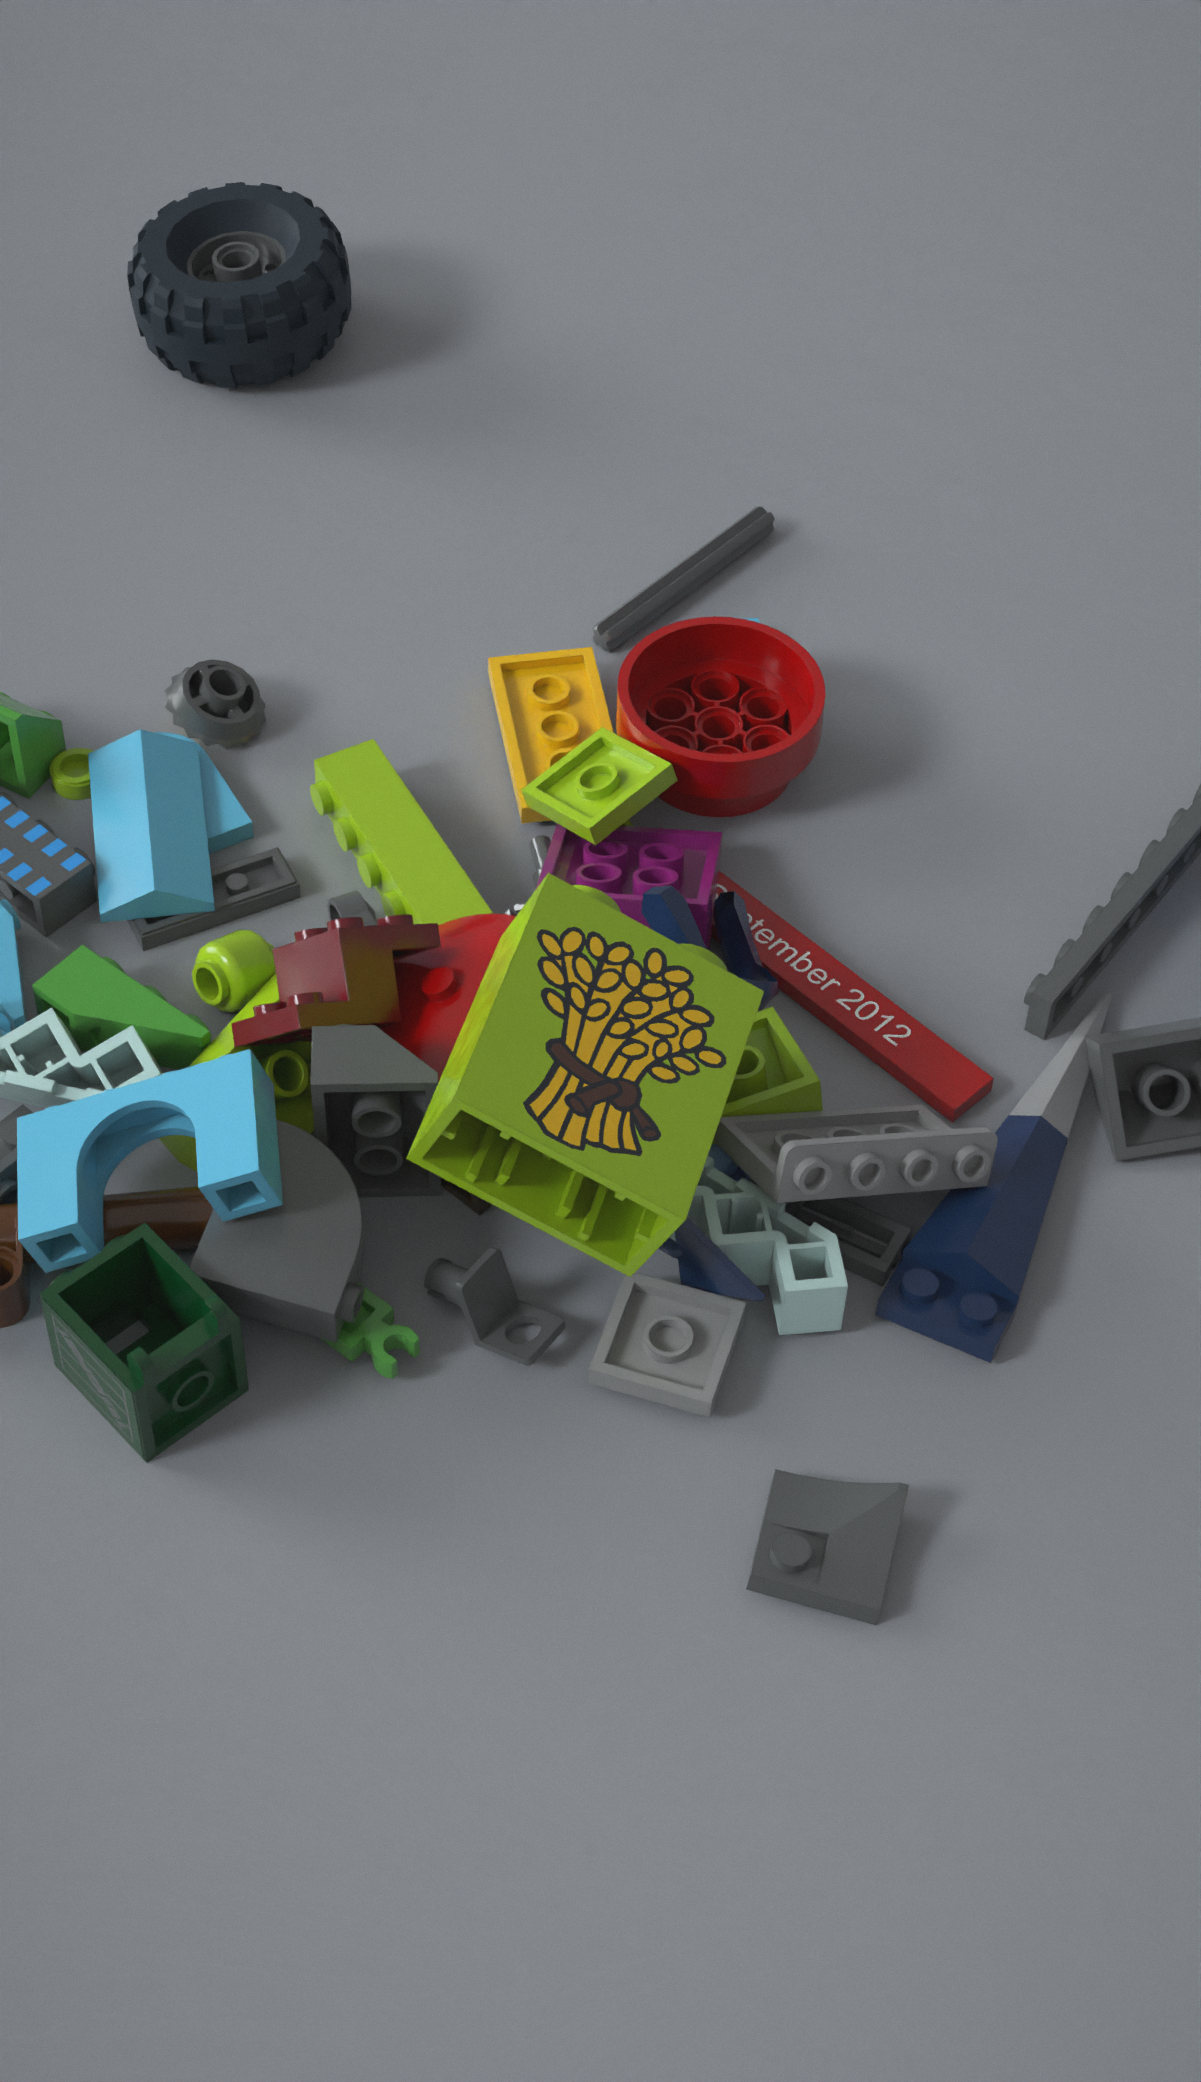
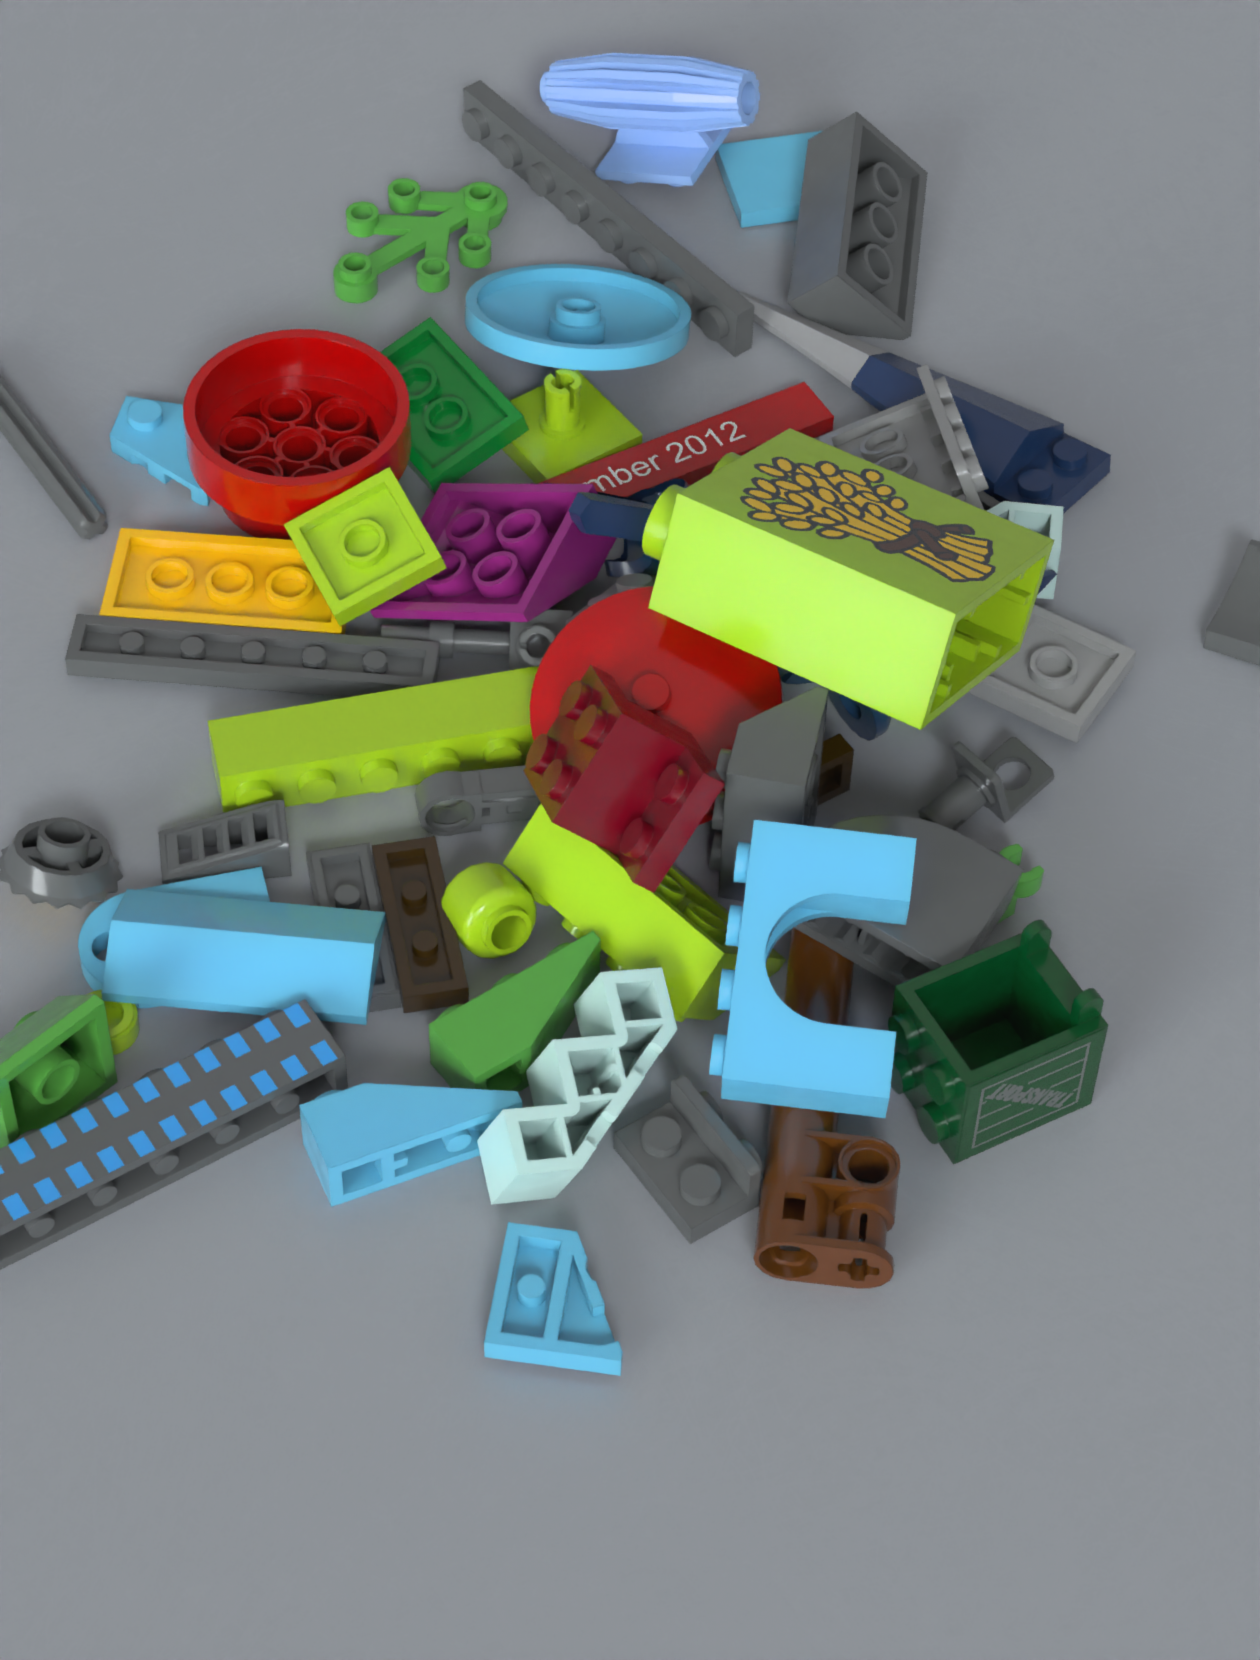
camera: 75 degrees left, 0 degrees up
(171, 946) = (418, 929): none -> dark brown plate
(272, 823) = (251, 824): none -> dark grey slope
(482, 771) = (247, 657): none -> dark grey plate
(826, 810) = (454, 406): none -> green plate
(855, 913) = (568, 427): none -> lime tile
(977, 879) = (577, 317): none -> medium azure dish
(1120, 790) = (474, 207): none -> bright green plant

